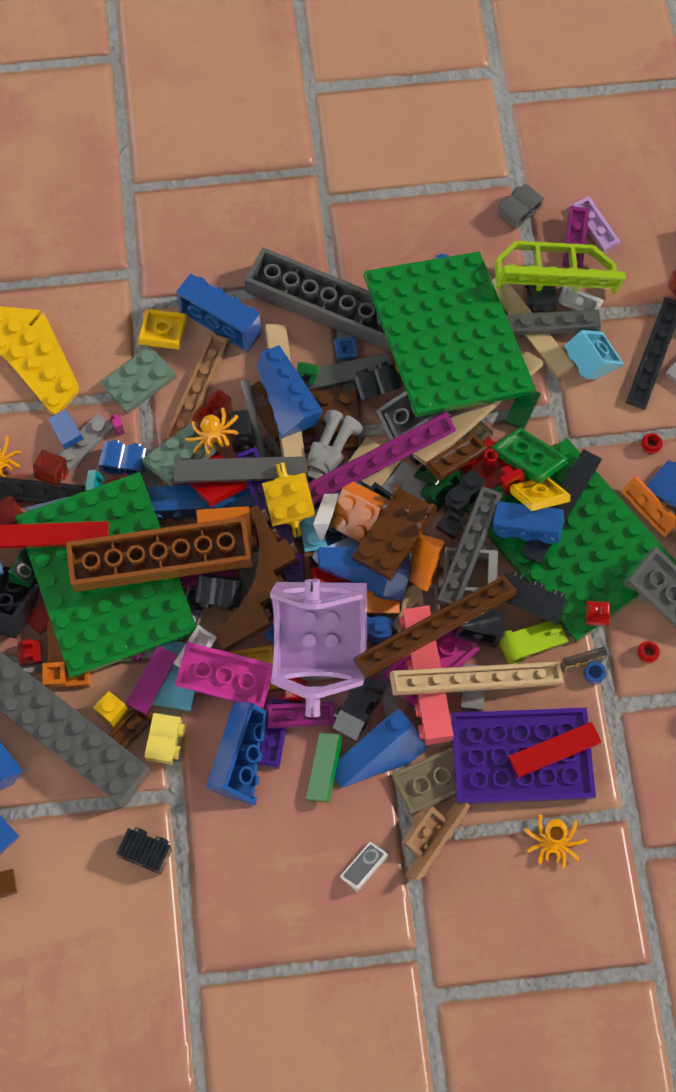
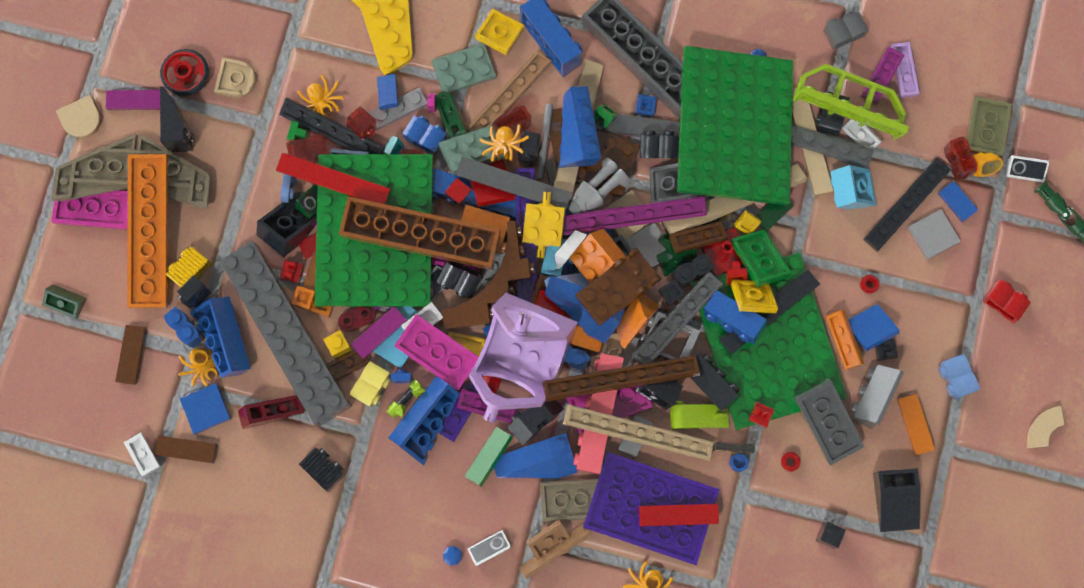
camera: 20 degrees right, 10 degrees up
(60, 810) = (269, 411): none -> dark red slope
(121, 675) = (357, 319): none -> dark red plate
(142, 428) = (451, 114): none -> dark green plate
(182, 500) = (458, 191): none -> red tile
(195, 718) = (401, 376): none -> blue plate
(204, 753) = (398, 408): none -> lime piece
(326, 890) = (452, 555): none -> blue tile
(500, 426) = (747, 222): none -> yellow tile

